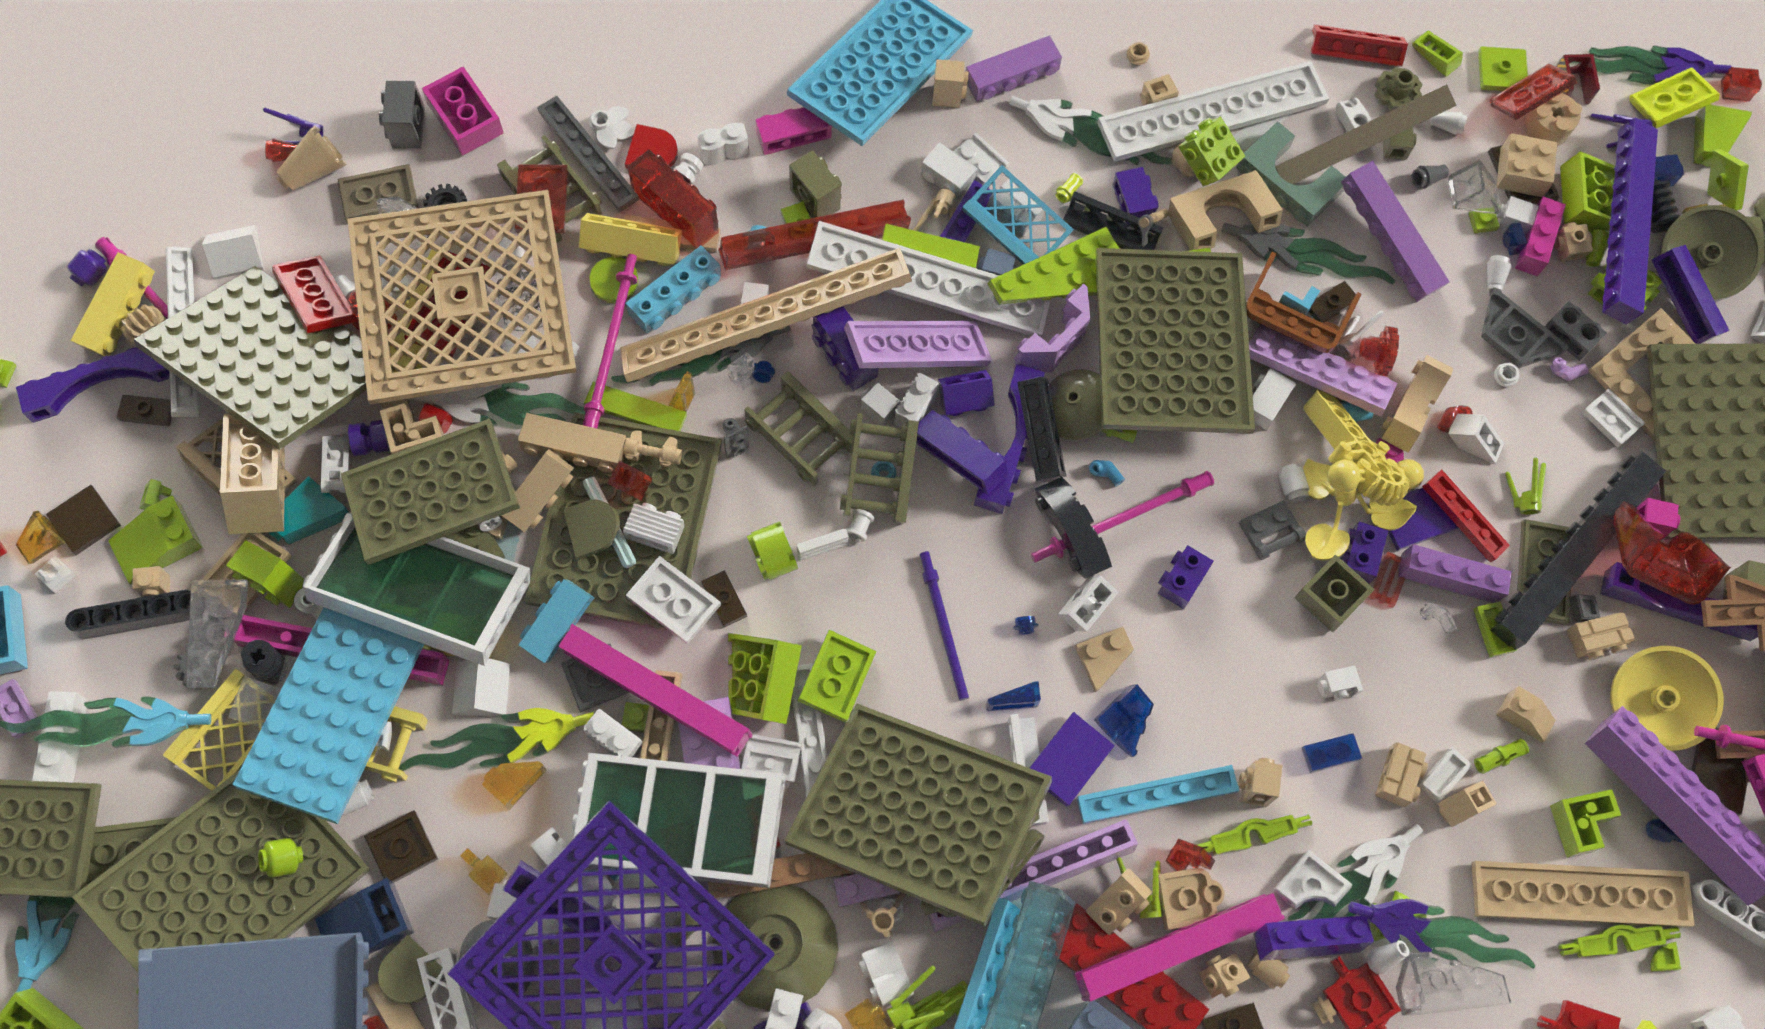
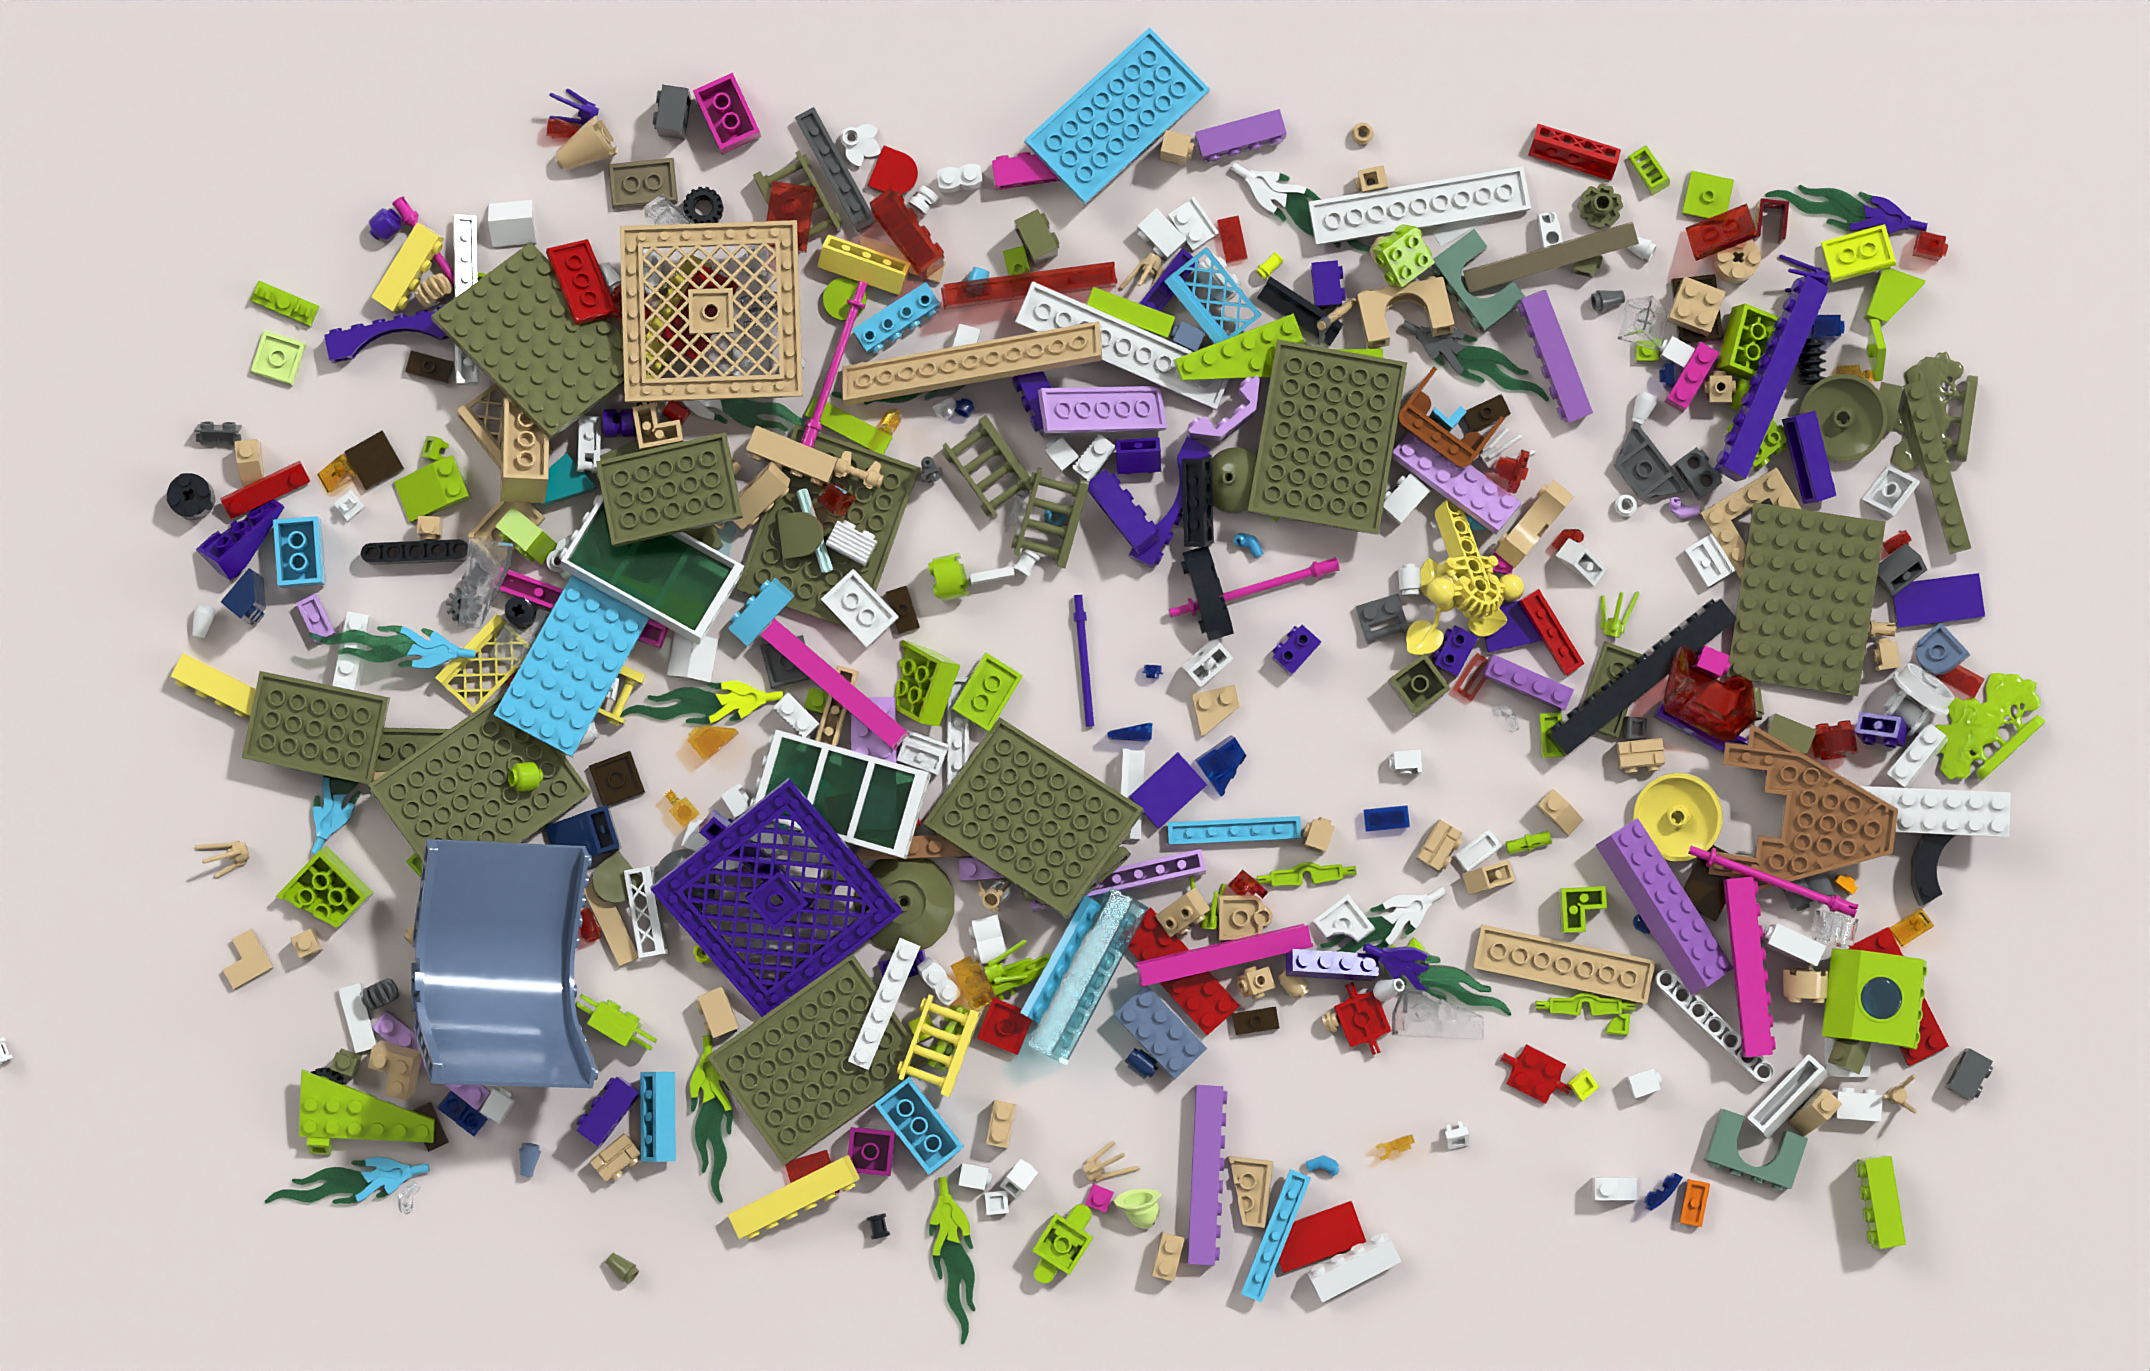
camera: 10 degrees right, 15 degrees up
(1024, 167) = (1232, 239): none -> clear red plate

